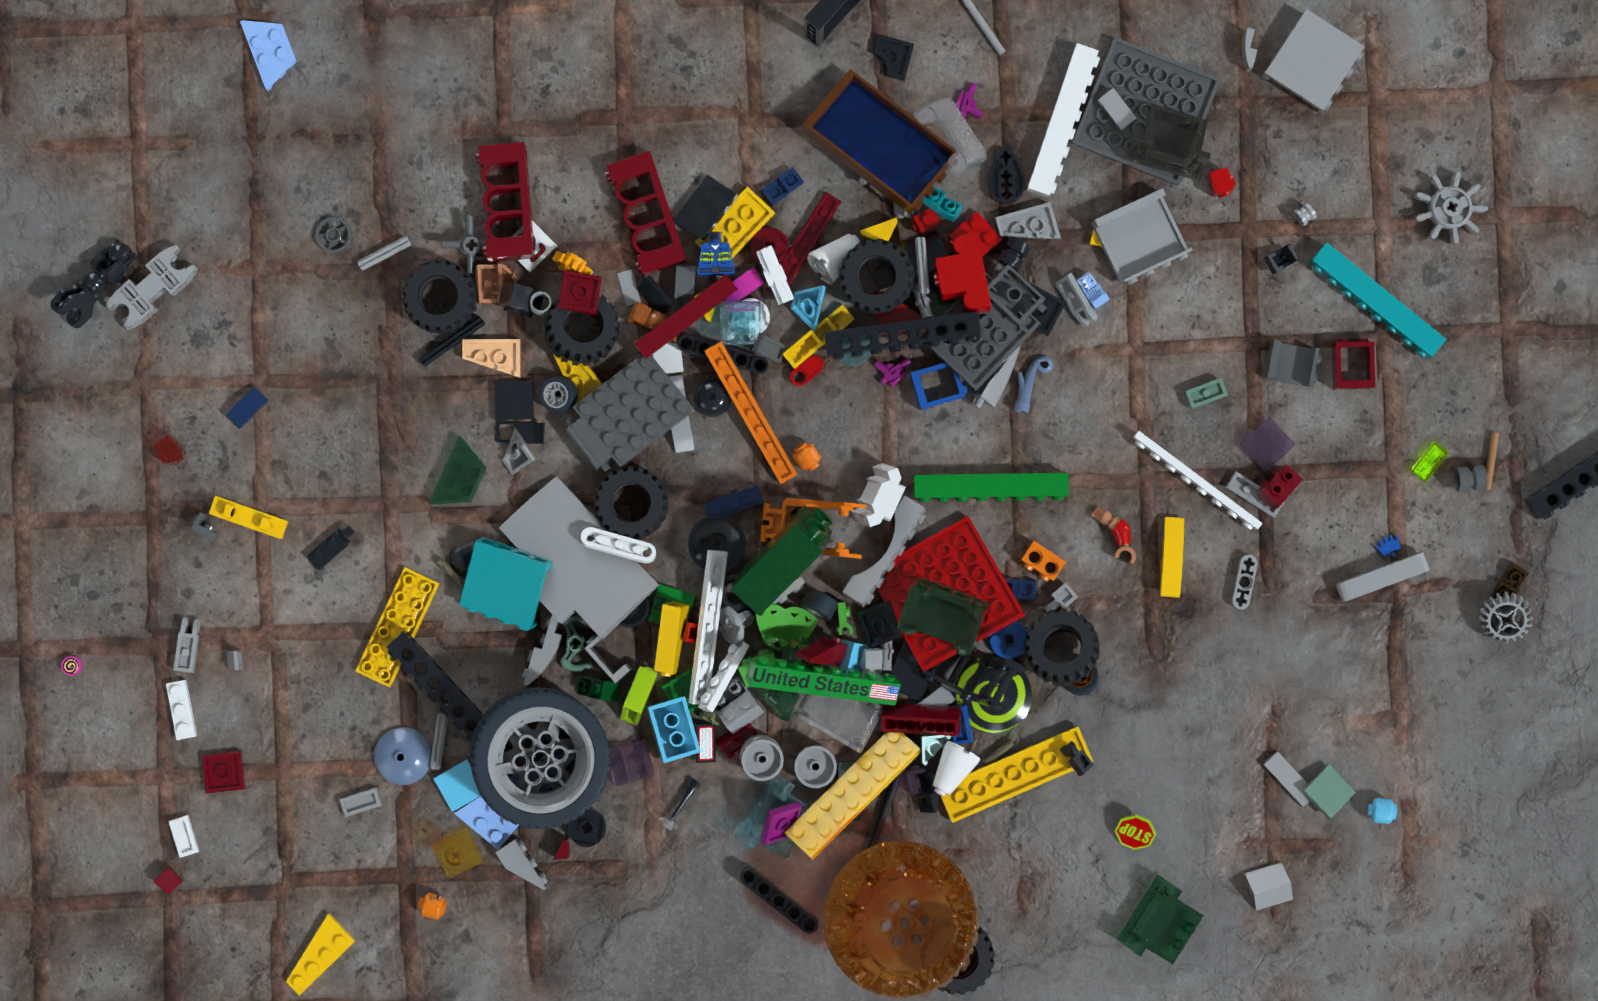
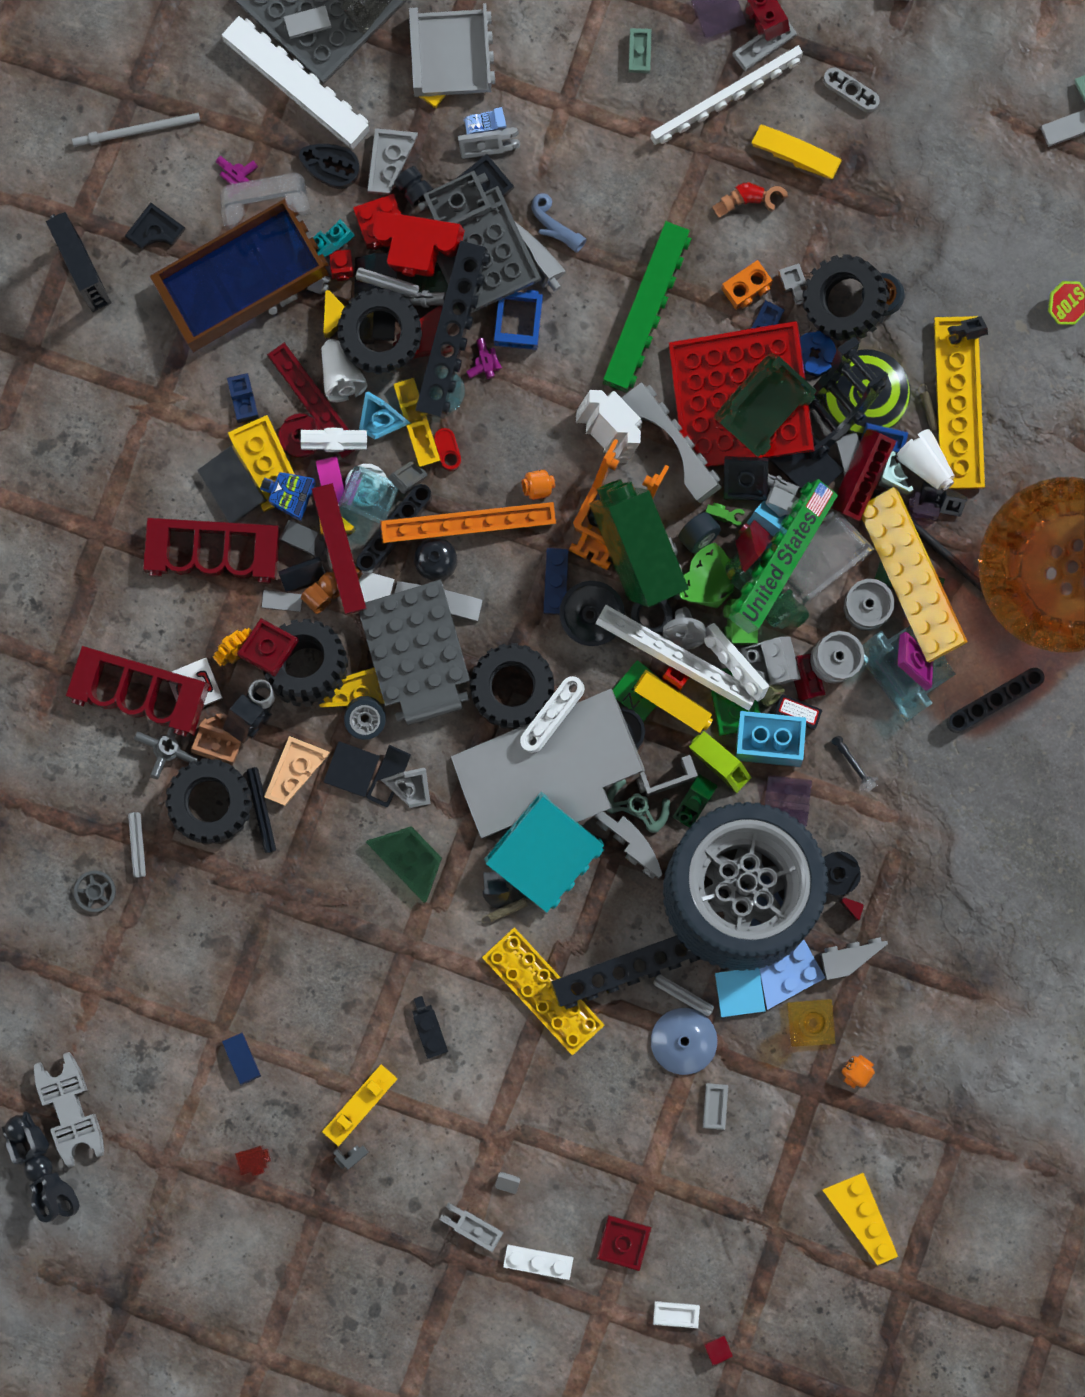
camera: 70 degrees left, 5 degrees down
(71, 665) = (442, 1363): tile -> none

